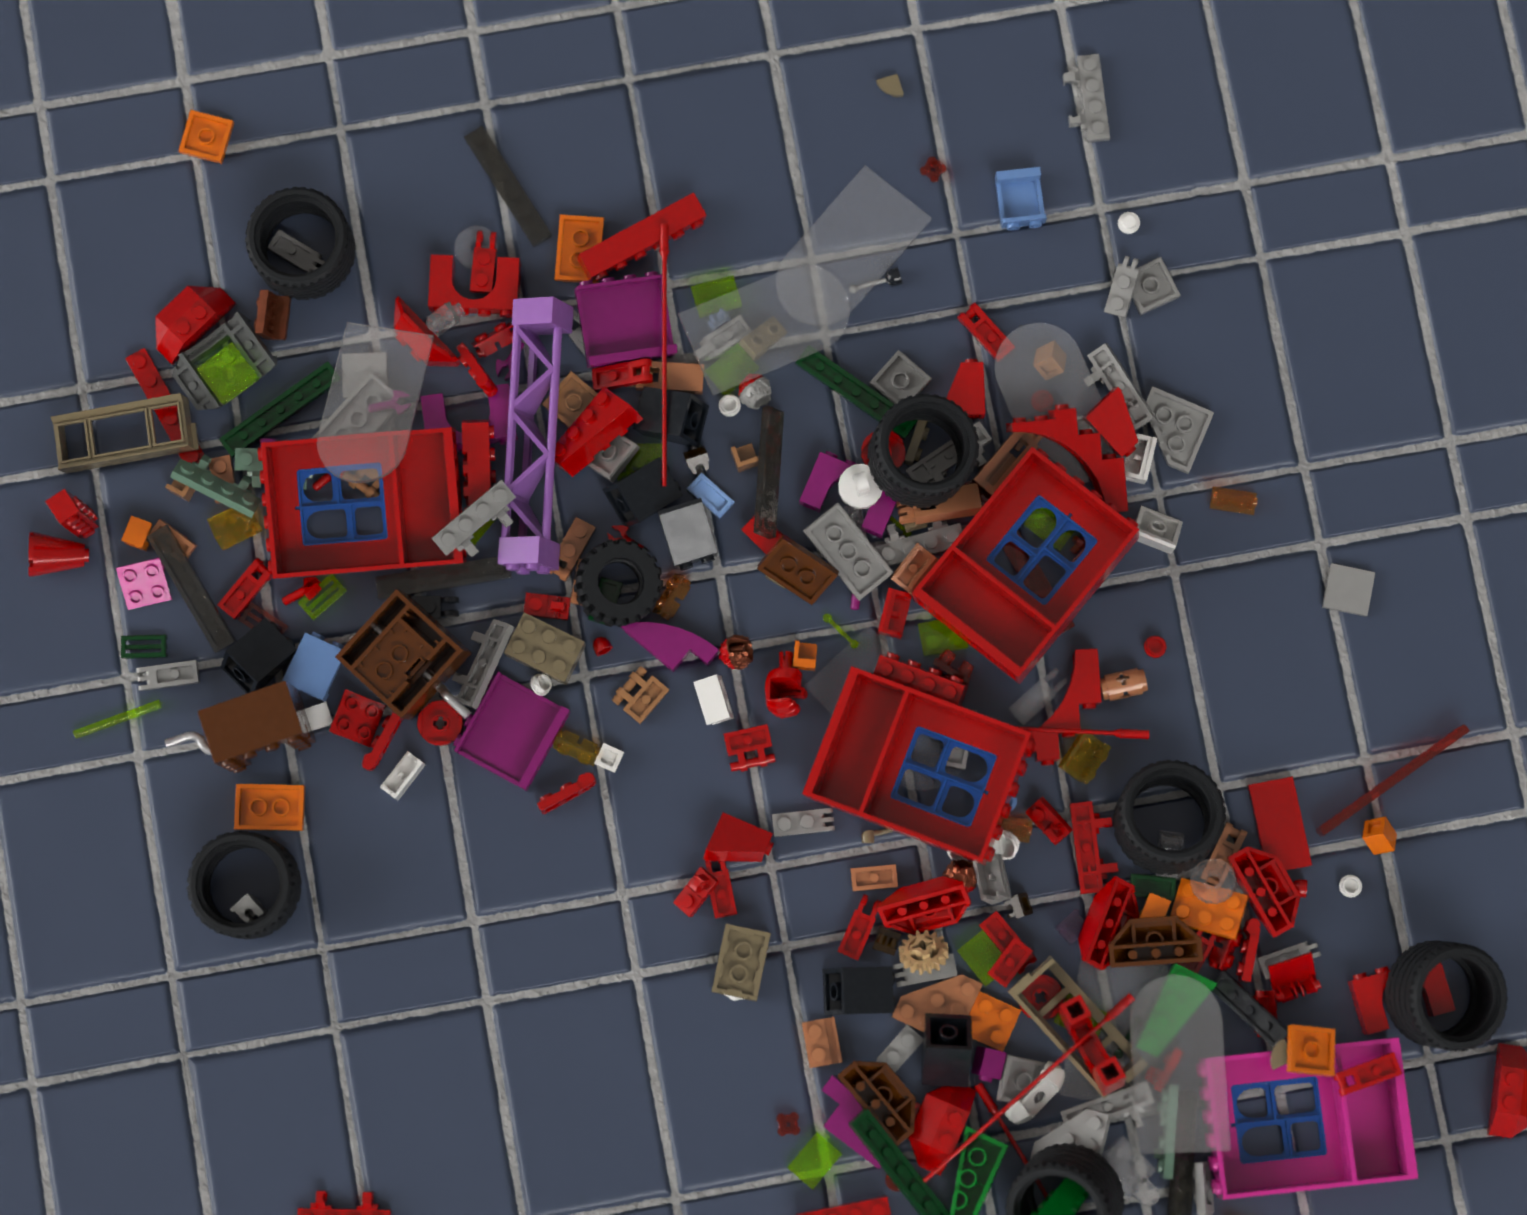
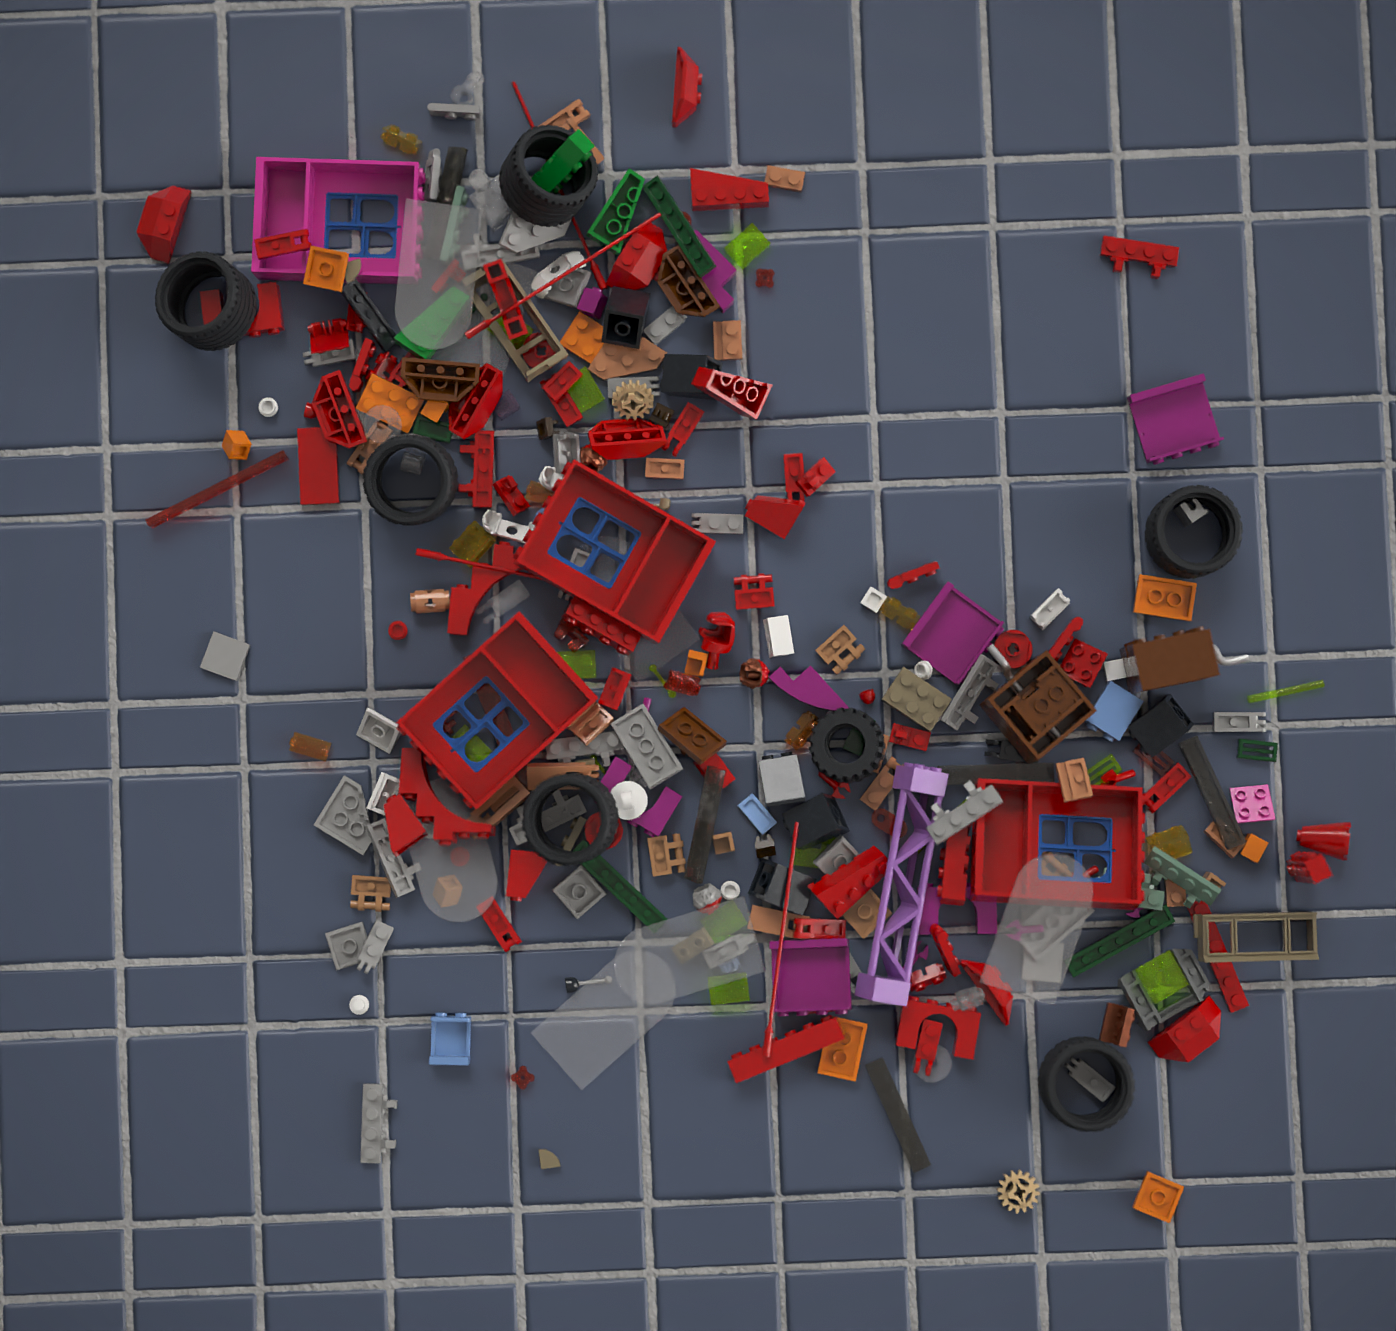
camera: 170 degrees left, 5 degrees up
(280, 1020) = (1174, 419): none -> magenta panel
(352, 575) = (1074, 780): none -> nougat plate
(354, 125) = (1025, 1189): none -> tan gear
(560, 503) = (888, 823): none -> clear red plate
(741, 963) = (785, 412): dark tan piece -> none
(801, 977) = (735, 392): none -> red wedge
(814, 432) = (660, 855): none -> medium nougat plate
(816, 629) = (683, 683): none -> clear red hips
(1058, 782) = (497, 526): none -> white piece
(1140, 353) = (370, 886): none -> medium nougat plate

